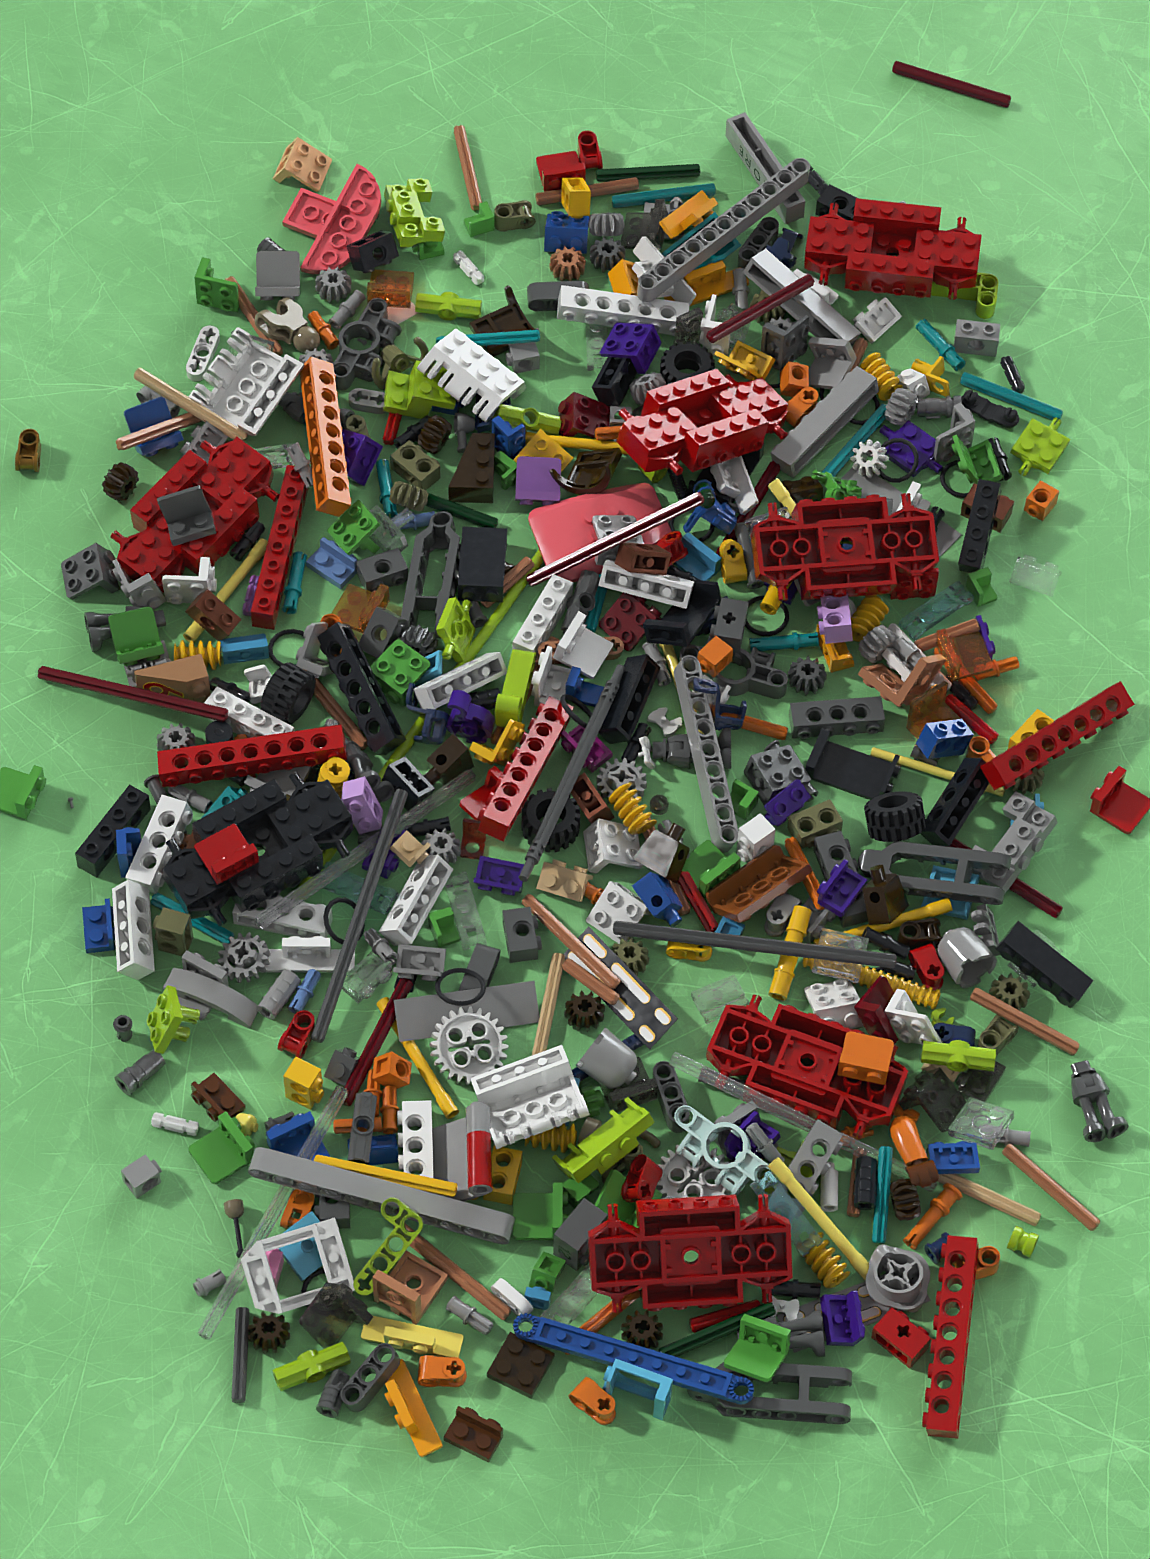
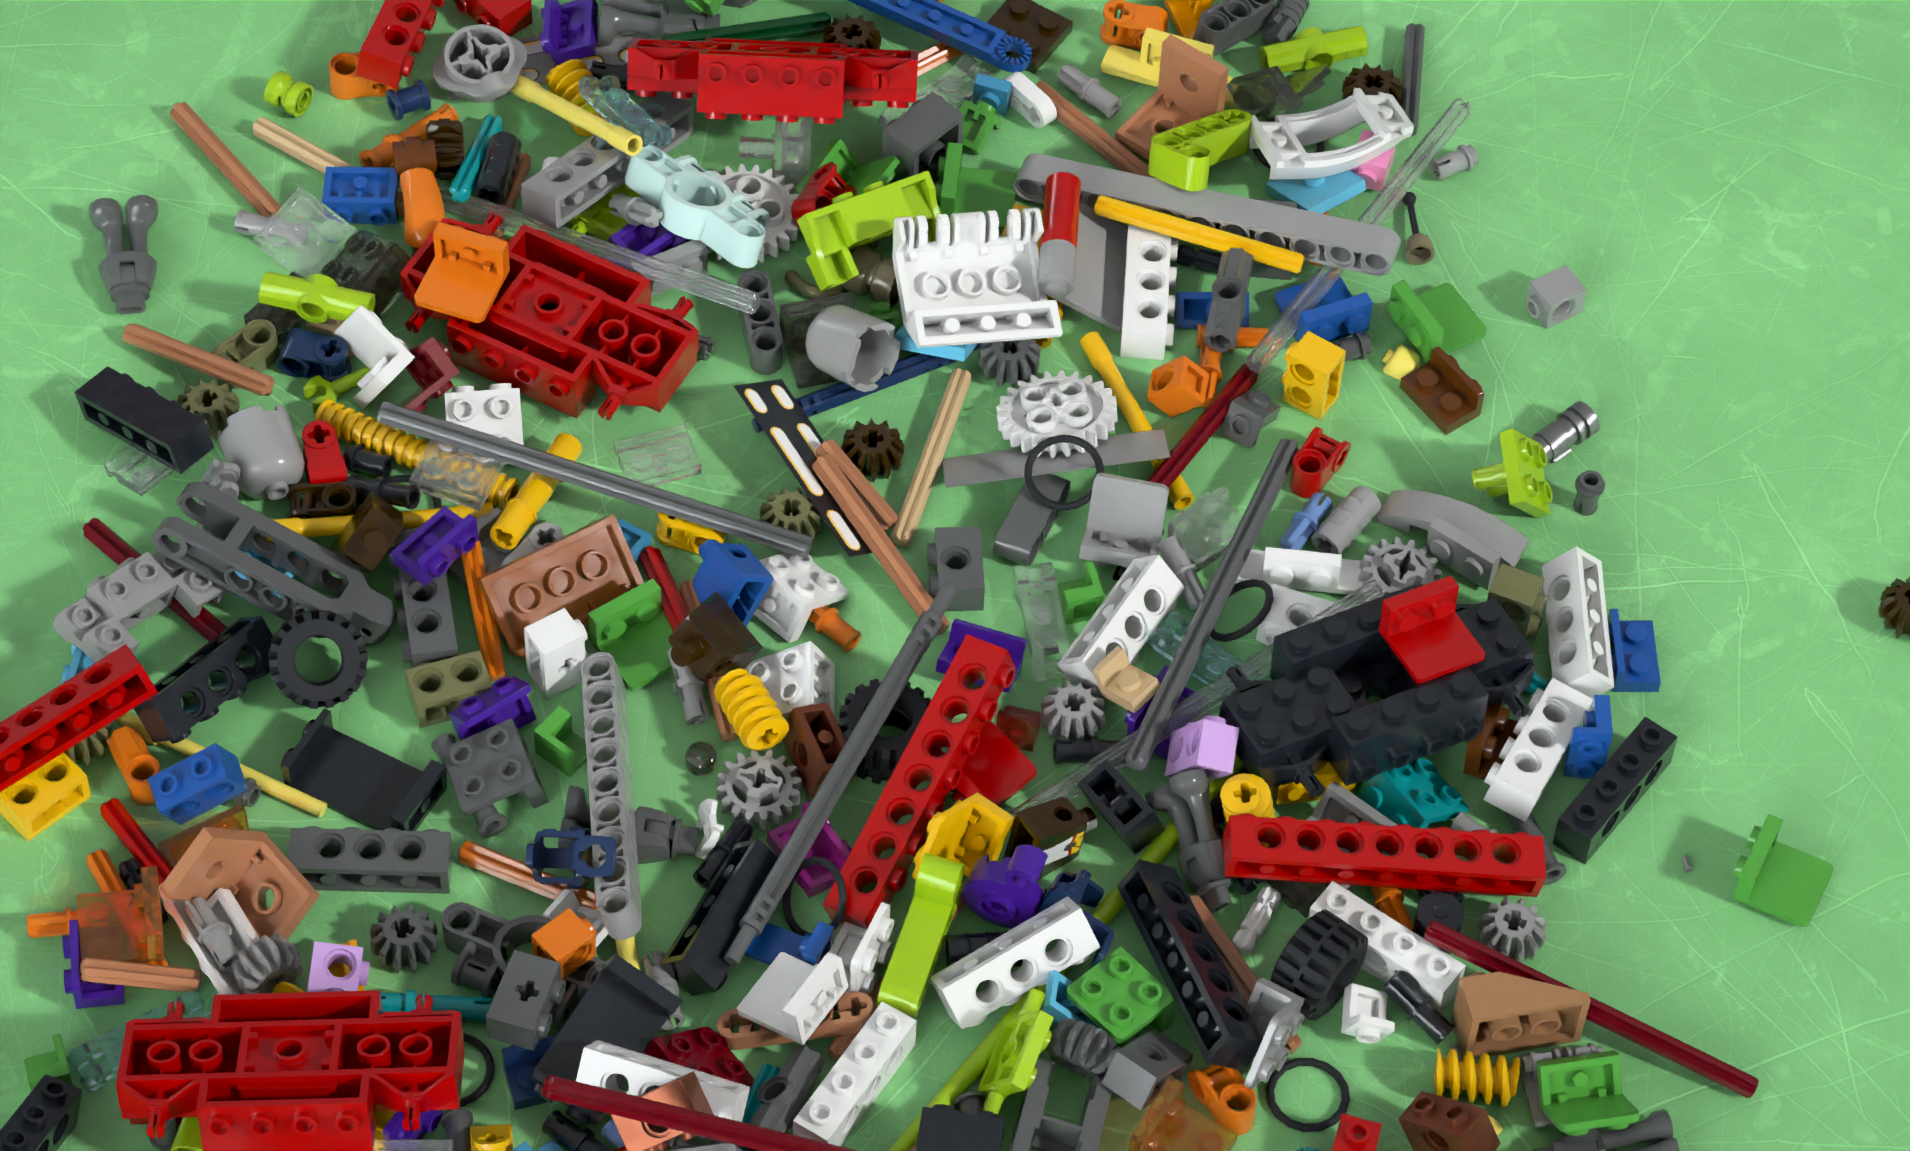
camera: 175 degrees left, 5 degrees down
(175, 1124) = (1505, 367): white axle -> none
(244, 648) = (1387, 1090): dark azure panel -> none
(389, 1110) = (1184, 338): orange axle -> none
(563, 881) = (868, 640): tan bracket -> none
(669, 727) = (677, 903): white piece -> none

